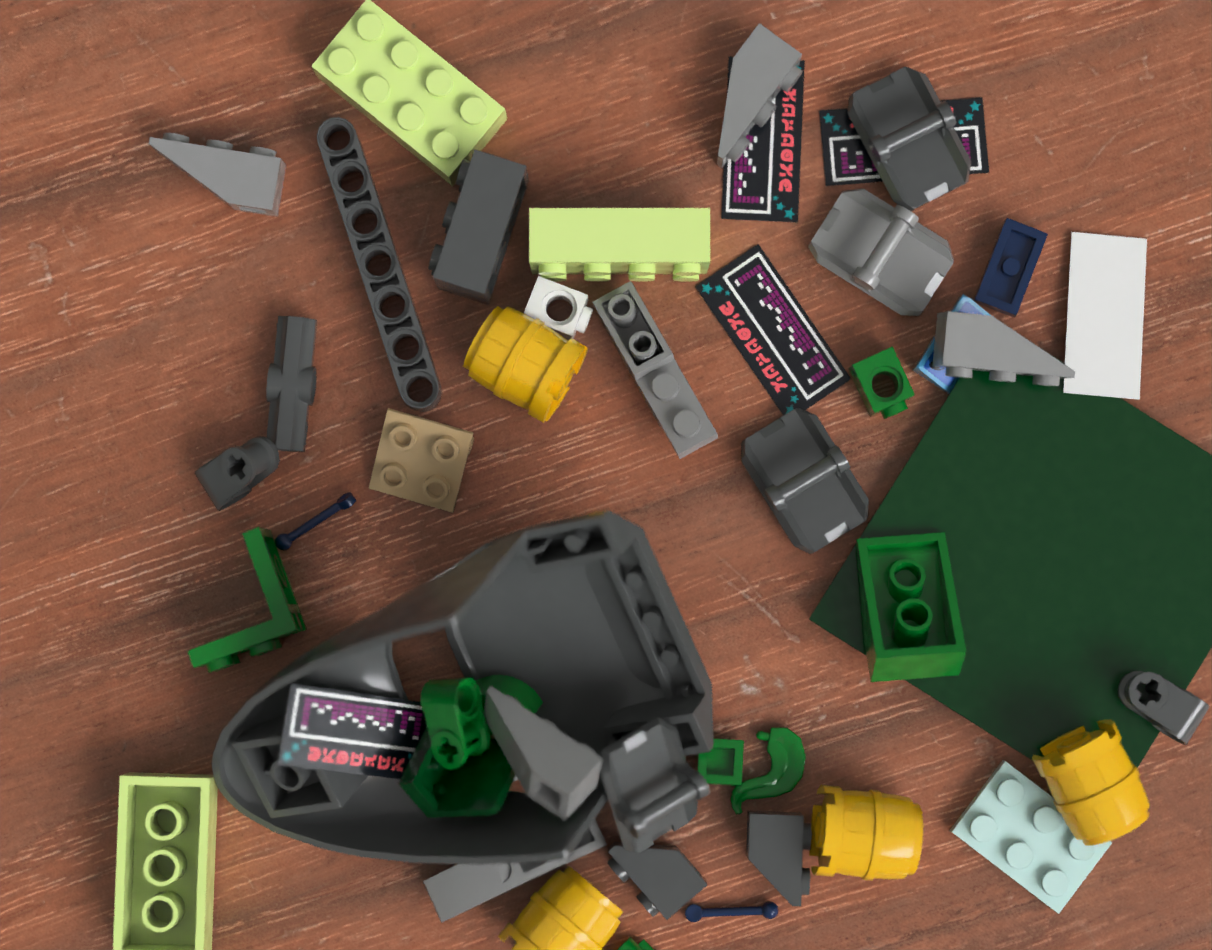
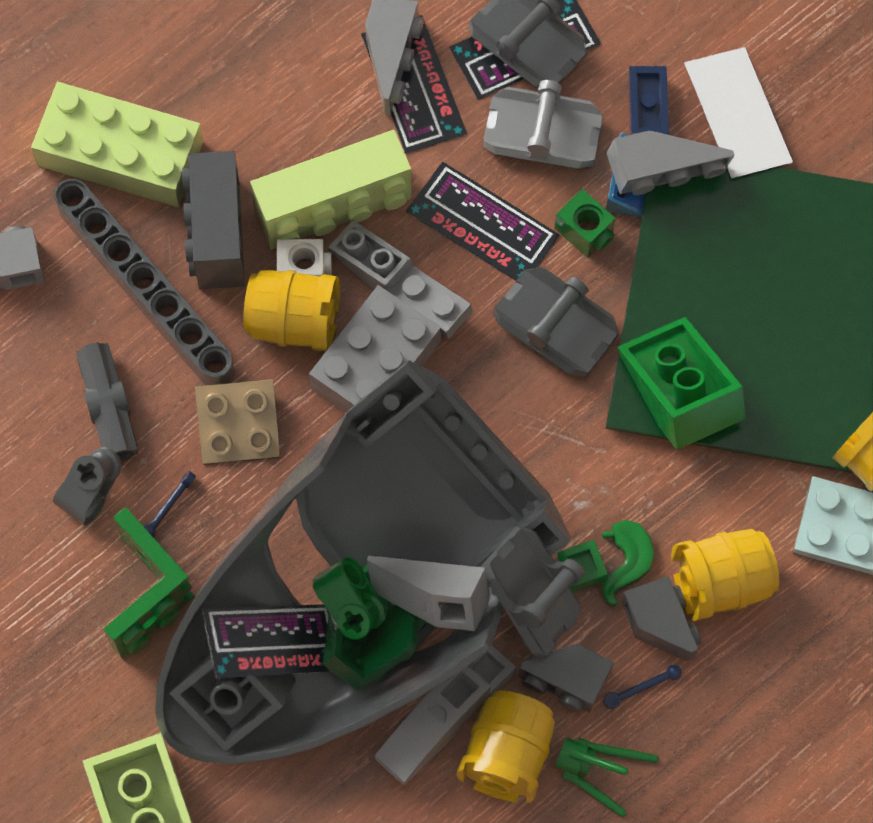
camera: 25 degrees left, 15 degrees down
(593, 447) = (372, 348): none -> light grey brick

